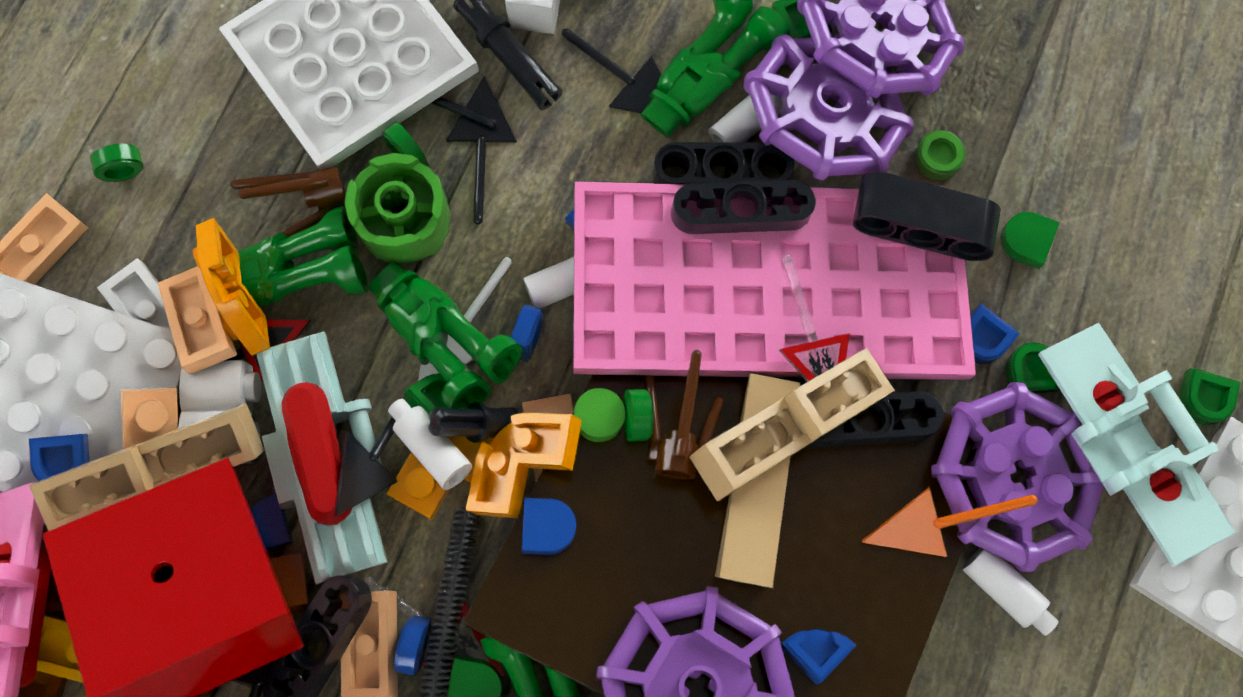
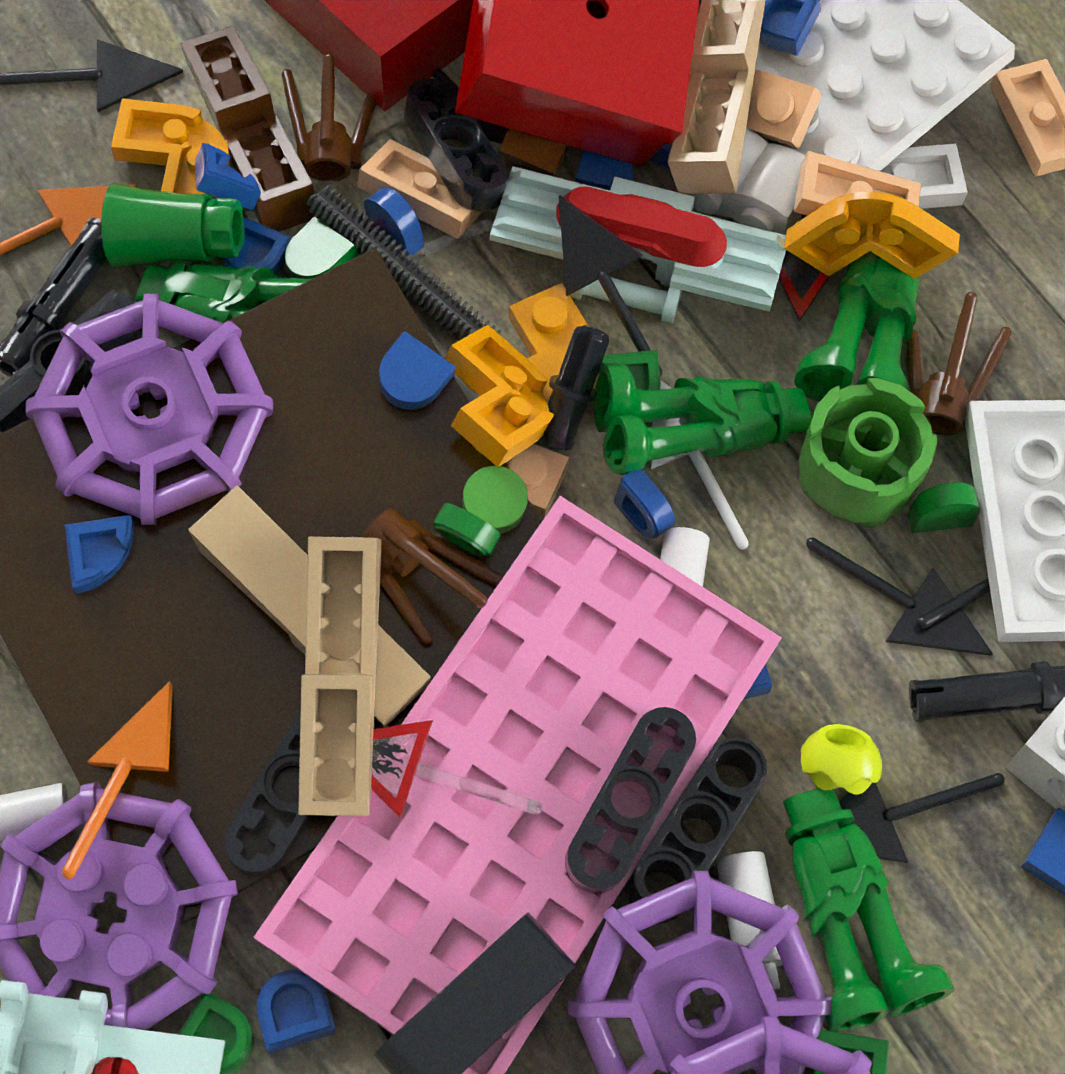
camera: 120 degrees right, 10 degrees down
(435, 453) = (550, 332): white cylinder -> none
(634, 116) = (841, 758): none -> neon yellow plate

